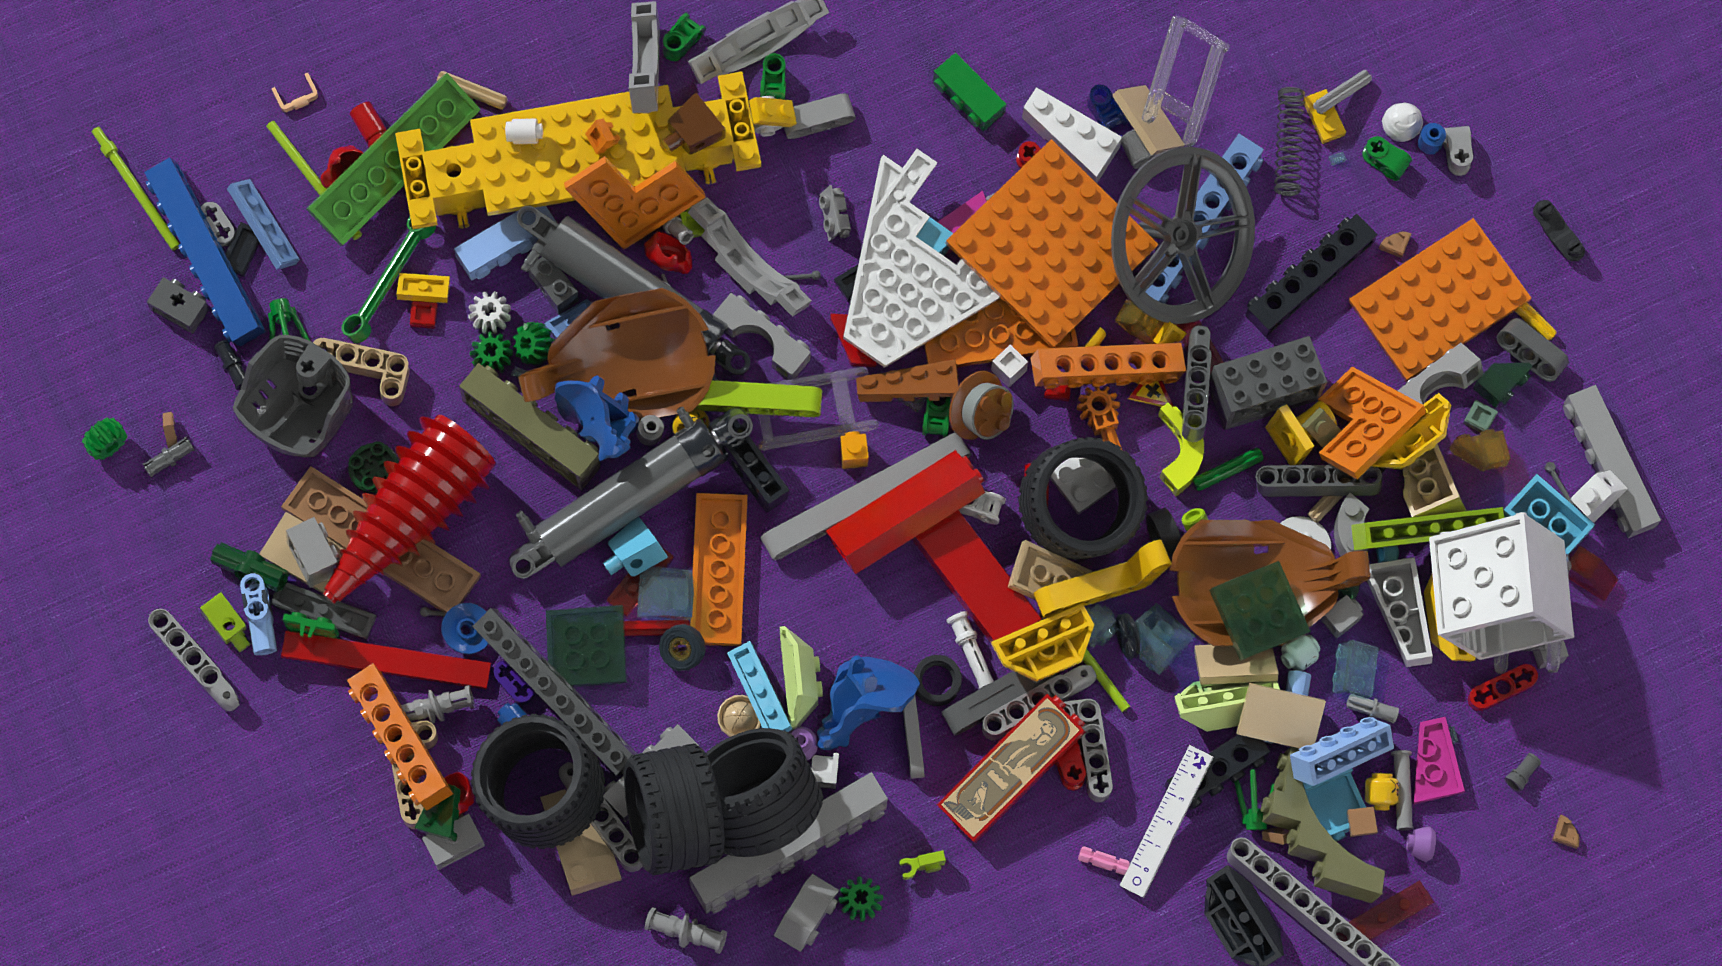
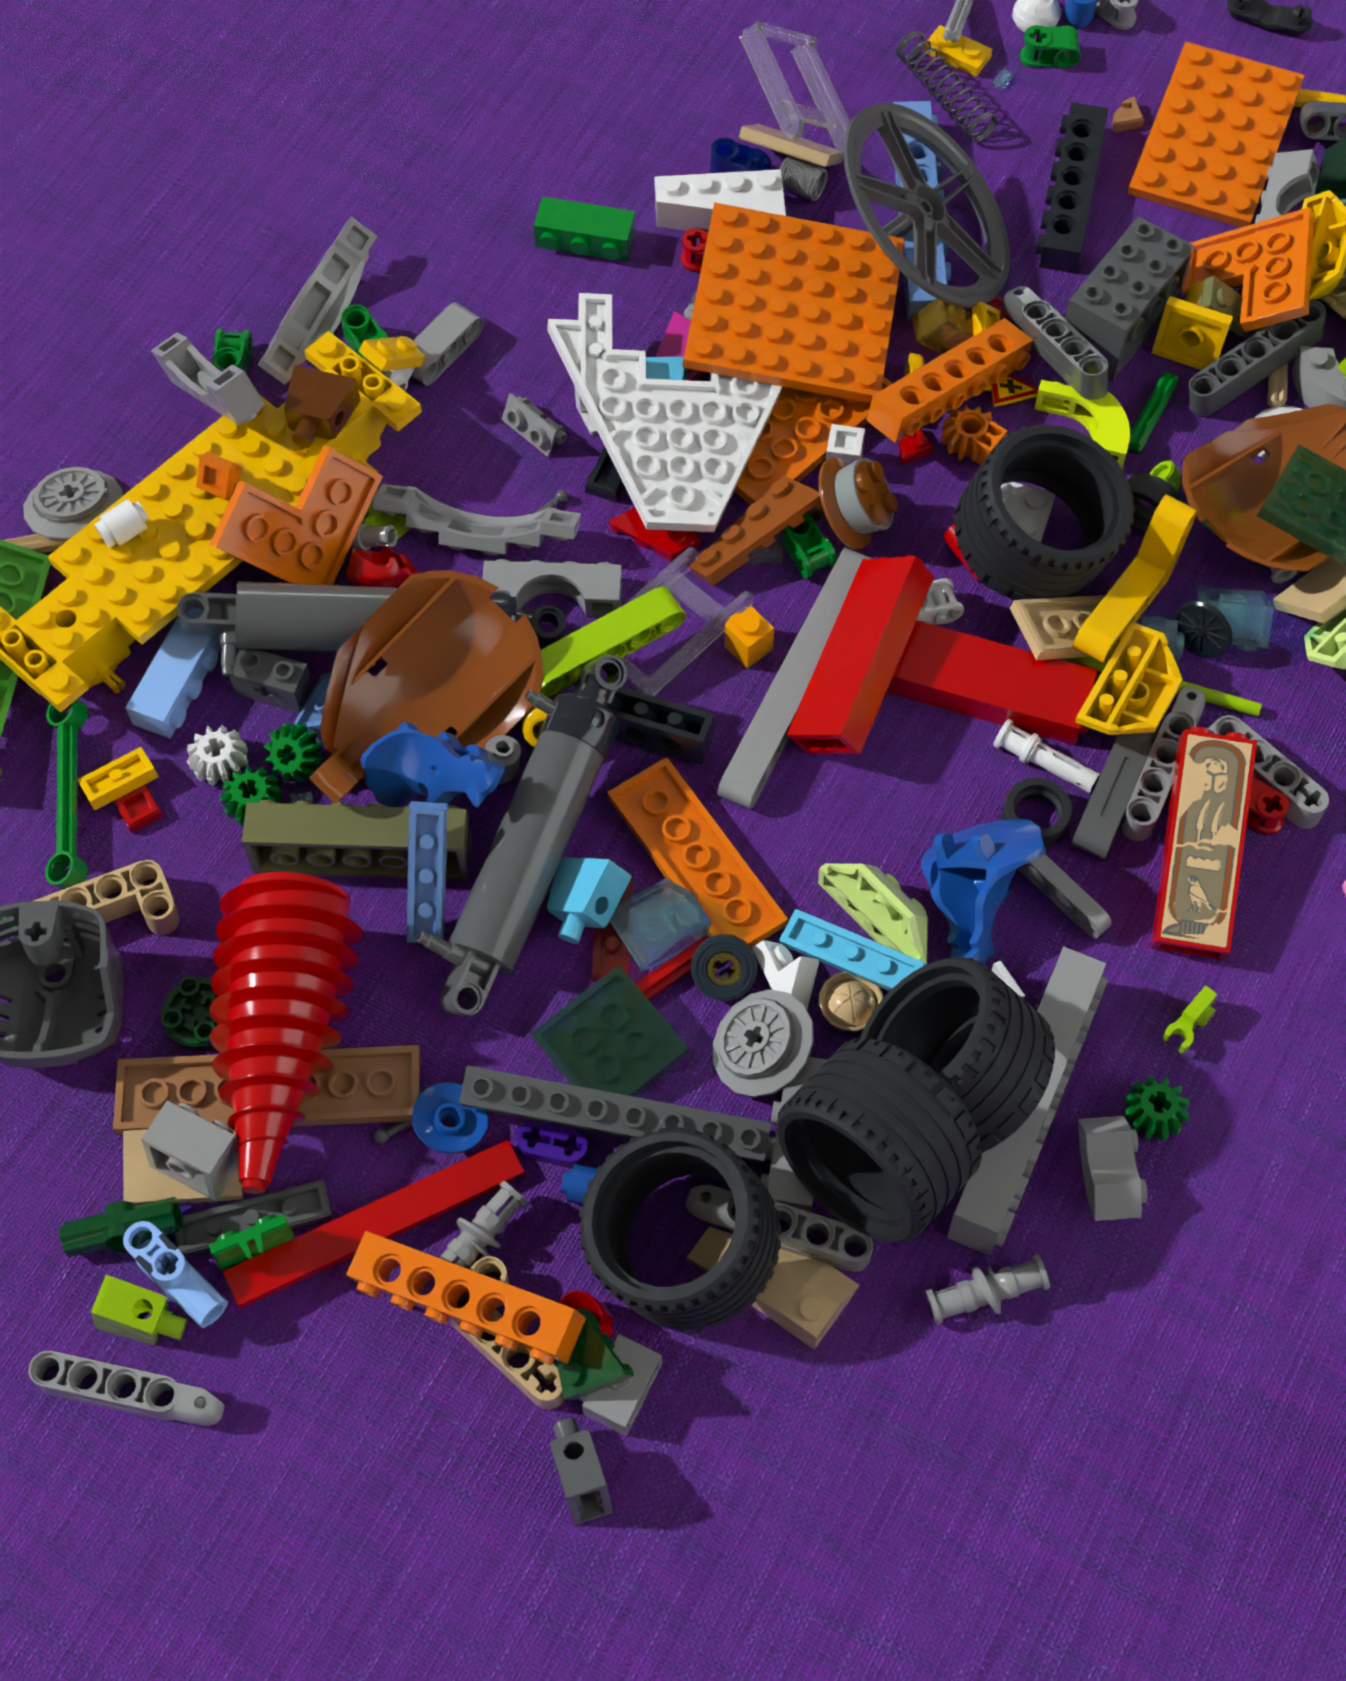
camera: 30 degrees left, 10 degrees down
(396, 871) = (580, 1472): none -> dark grey torso
(519, 94) = (69, 501): none -> light grey piece
(551, 476) = (426, 869): none -> medium blue tile
(669, 722) = (774, 1063): none -> light grey piece
(712, 679) = (785, 974): none -> white slope

